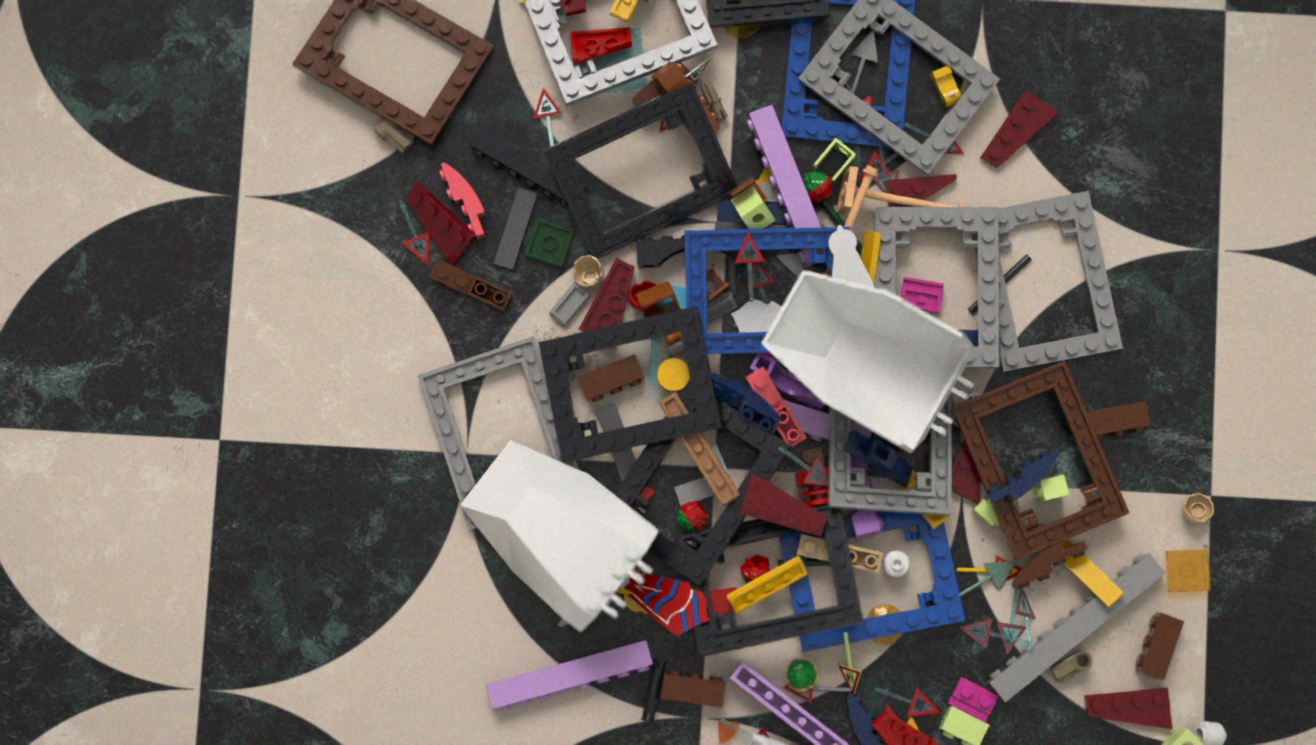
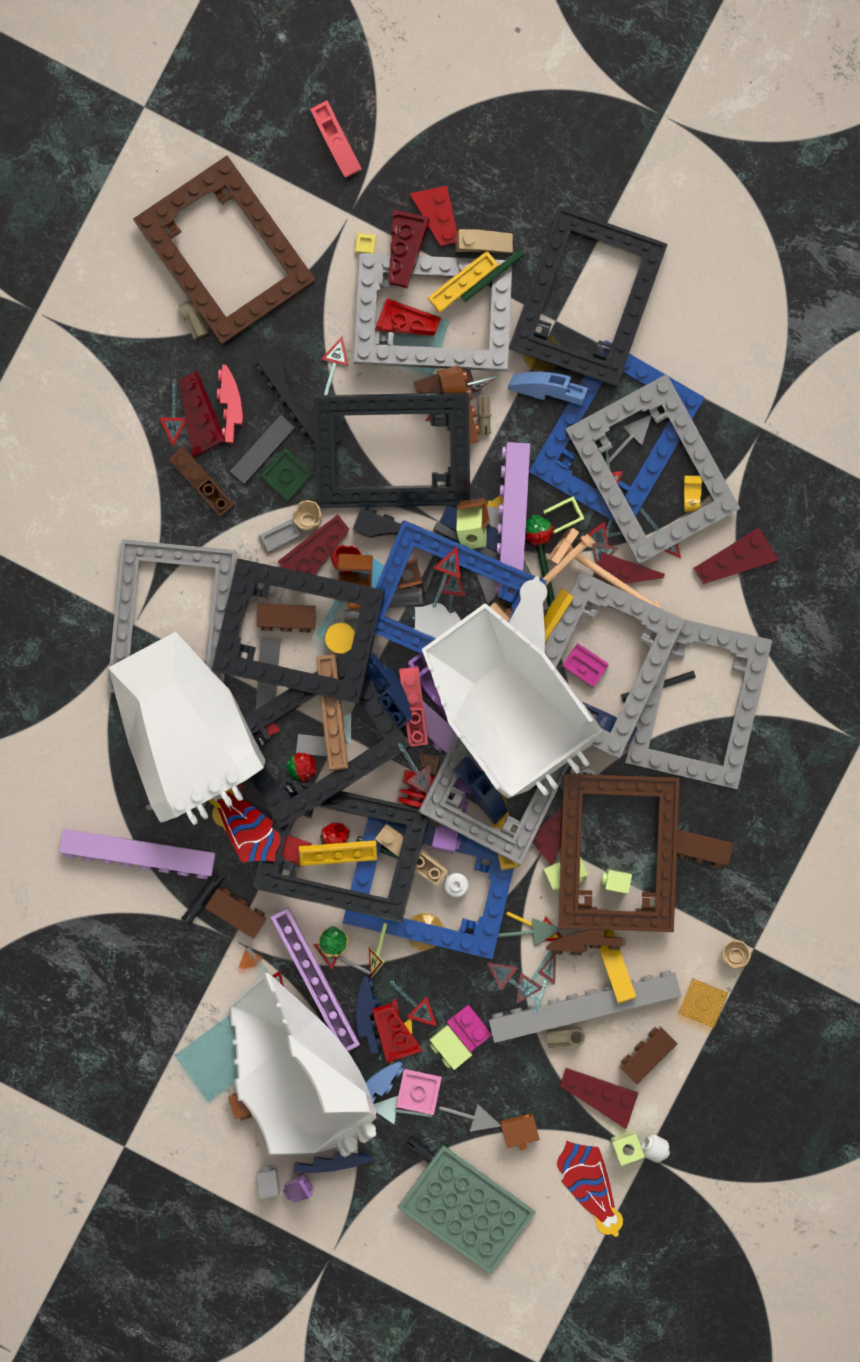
camera: 25 degrees right, 5 degrees up
(753, 47) = (547, 383): none -> medium blue slope
(778, 507) = (373, 790): dark red wing -> none
(1030, 475) = (603, 862): dark blue slope -> none

